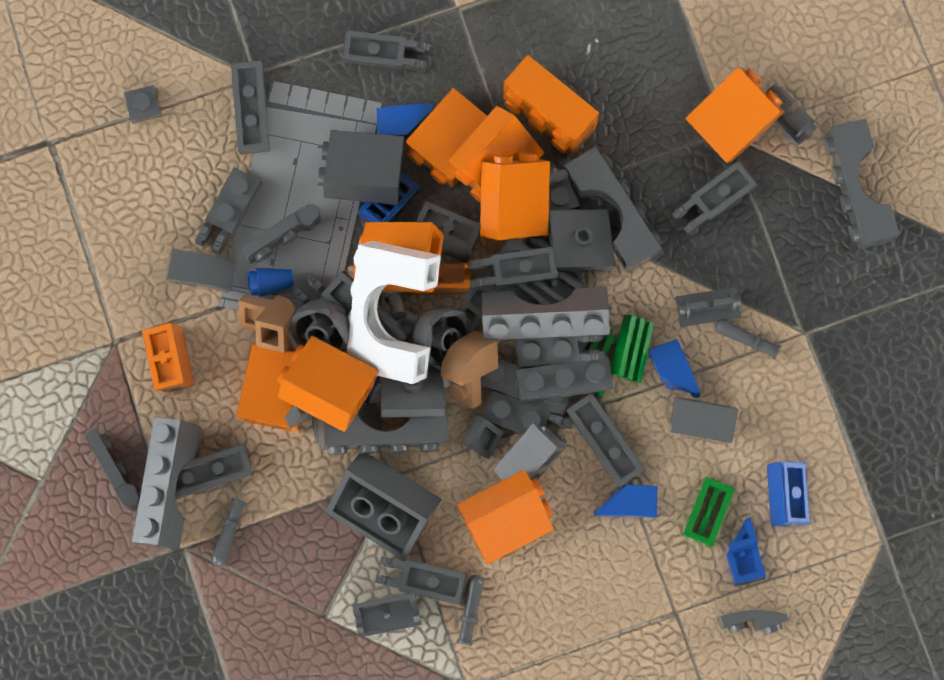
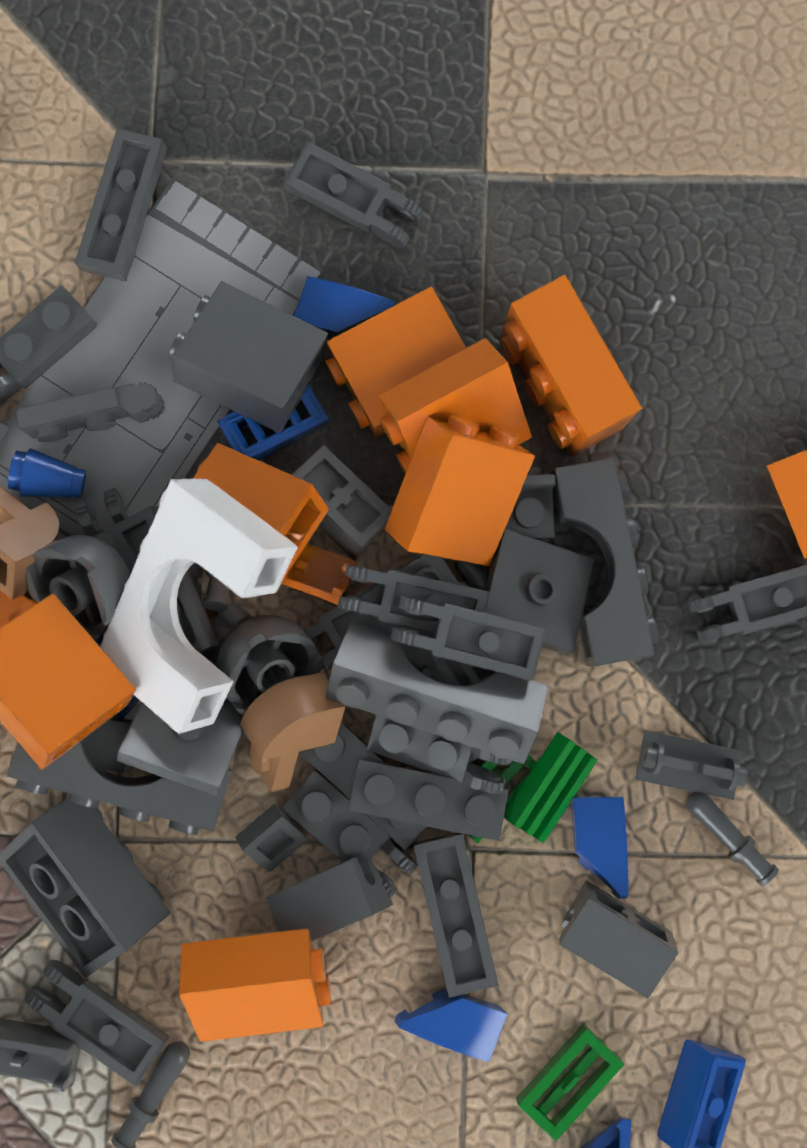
camera: 15 degrees right, 5 degrees up
(555, 273) = (475, 638): none -> dark grey hinge

